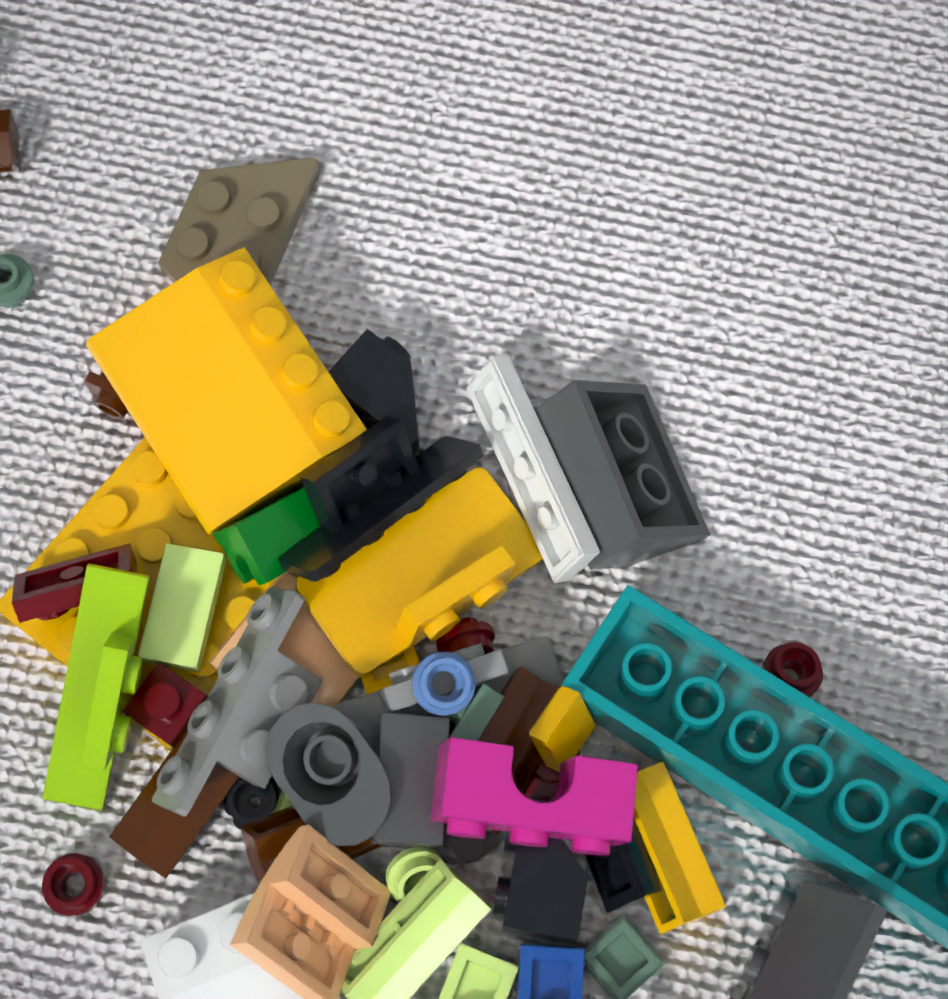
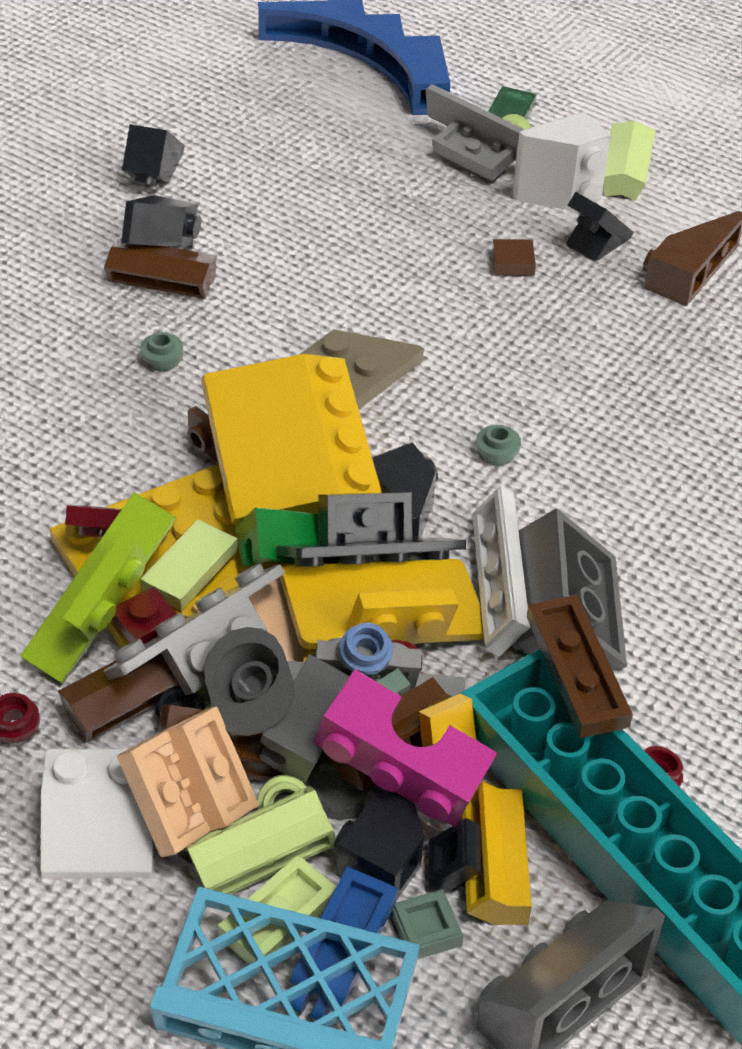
camera: 15 degrees right, 25 degrees down
(461, 285) = (498, 444): none -> sand green plate
(681, 607) = (579, 666): none -> reddish brown plate

